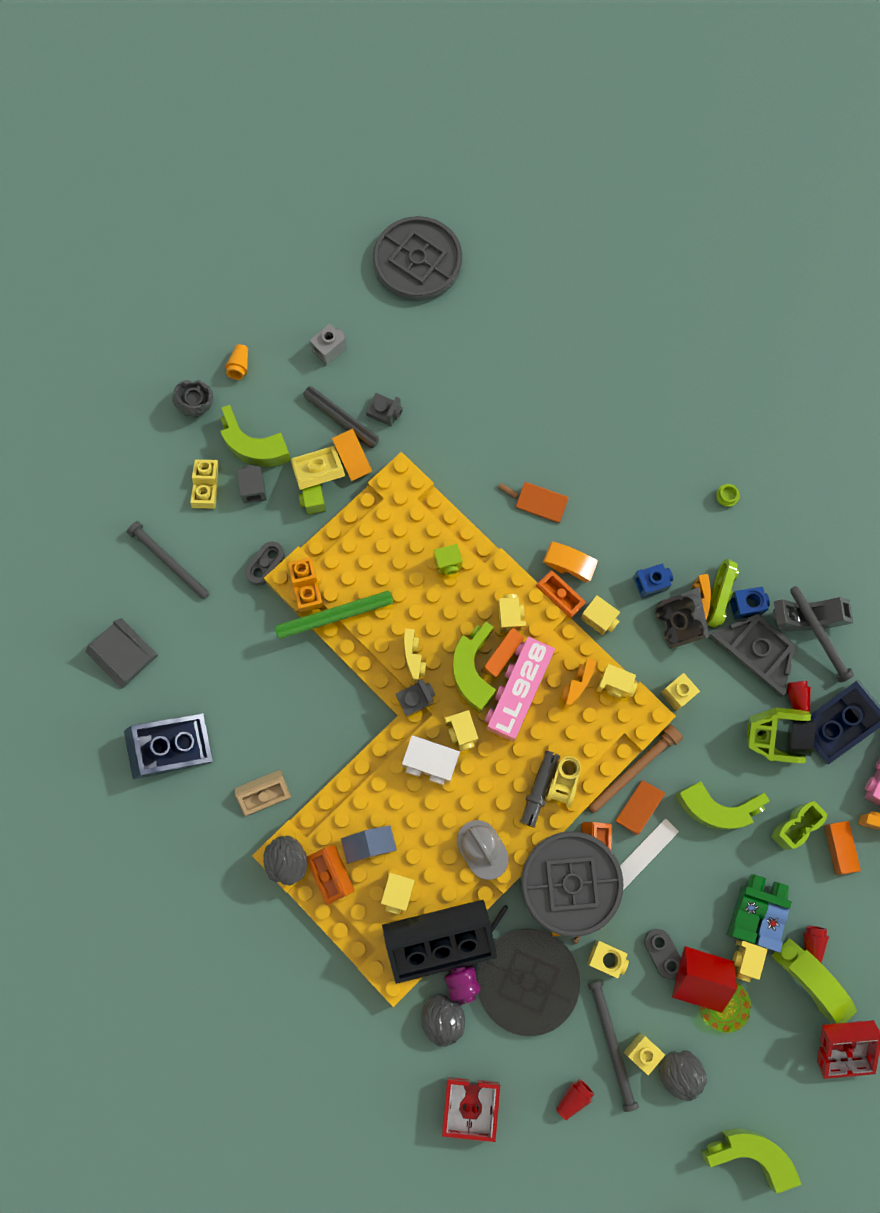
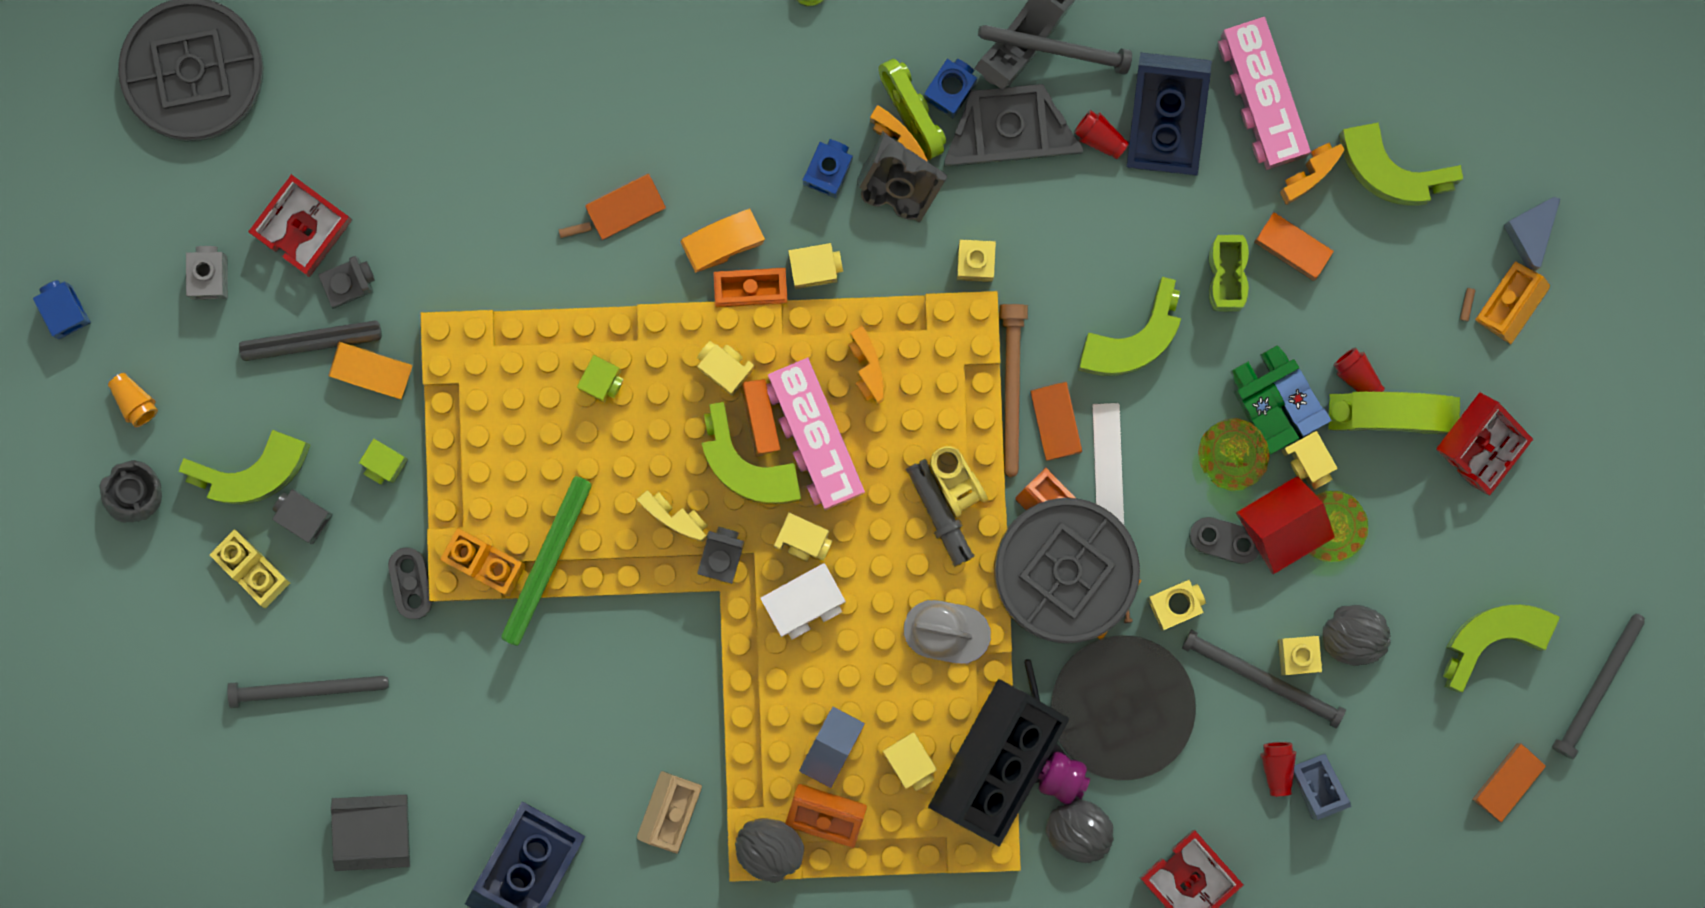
camera: 45 degrees left, 10 degrees up
(252, 295) = (61, 309): none -> blue brick
(317, 467) = (351, 424): light yellow tile -> none
(391, 356) = (305, 209): none -> piece
(585, 1135) = (1320, 787): none -> sand blue slope
(617, 682) = (904, 323): light yellow brick -> none
(712, 916) = (1234, 454): none -> clear neon green tile
(799, 737) = (1142, 182): lime piece -> none

